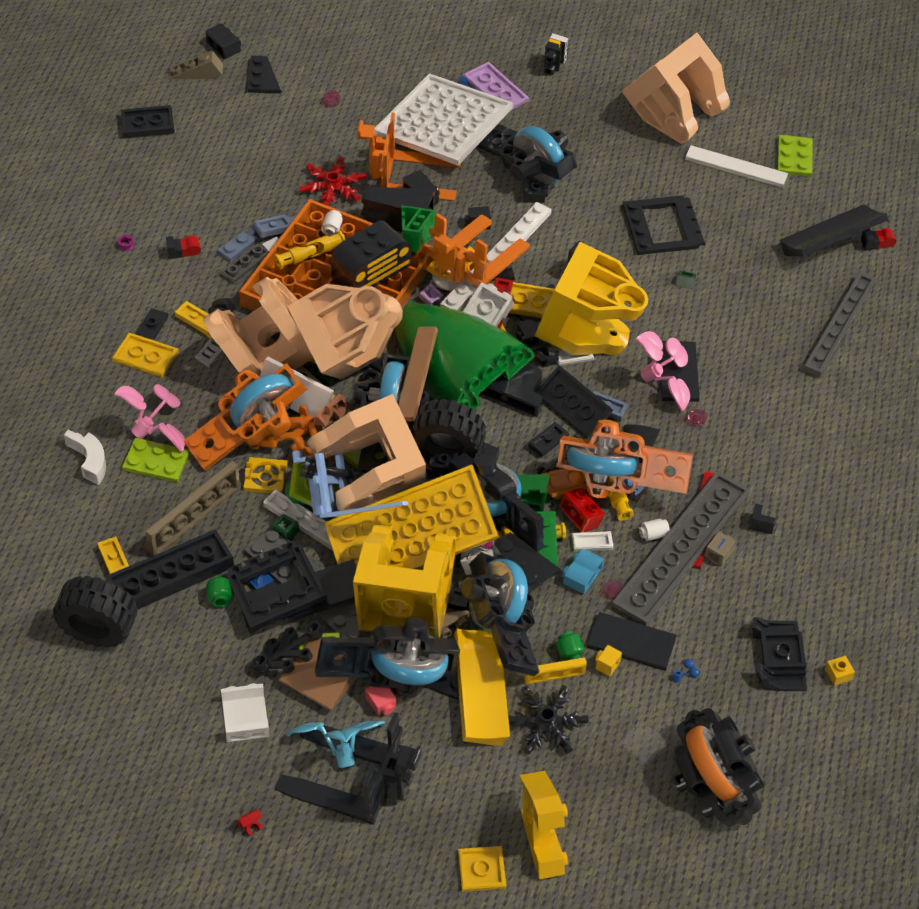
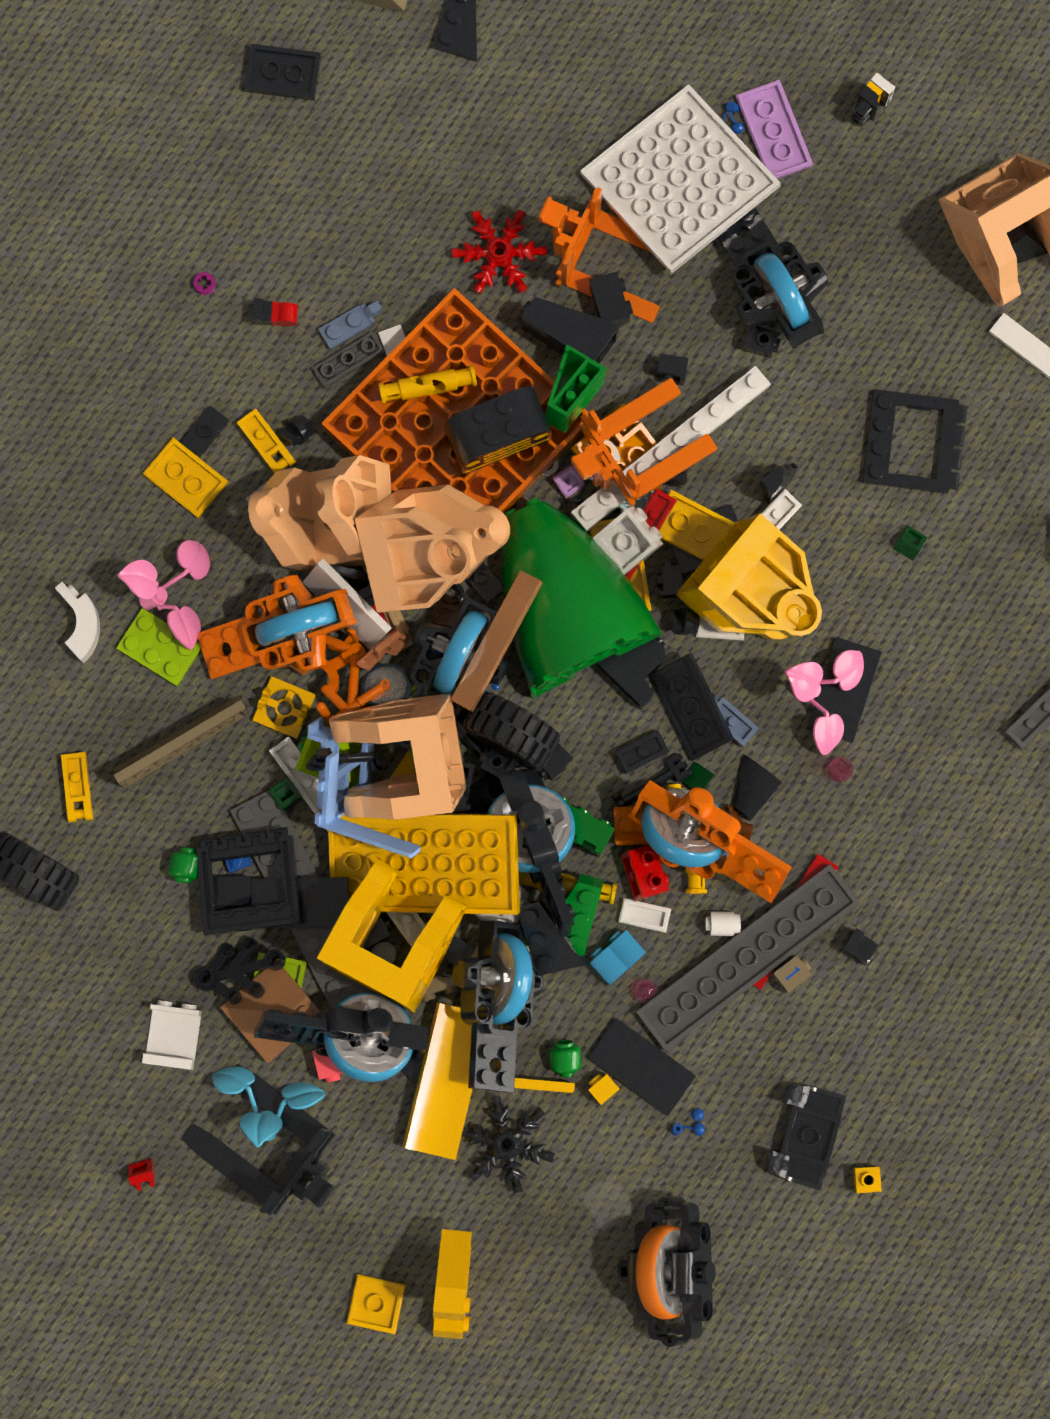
camera: 20 degrees right, 30 degrees up
(174, 569) = (135, 819): black arch -> none
(272, 225) = (402, 310): sand blue hinge -> none
(331, 223) = (468, 347): white brick -> none
(332, 98) = (542, 94): clear pink tile -> none

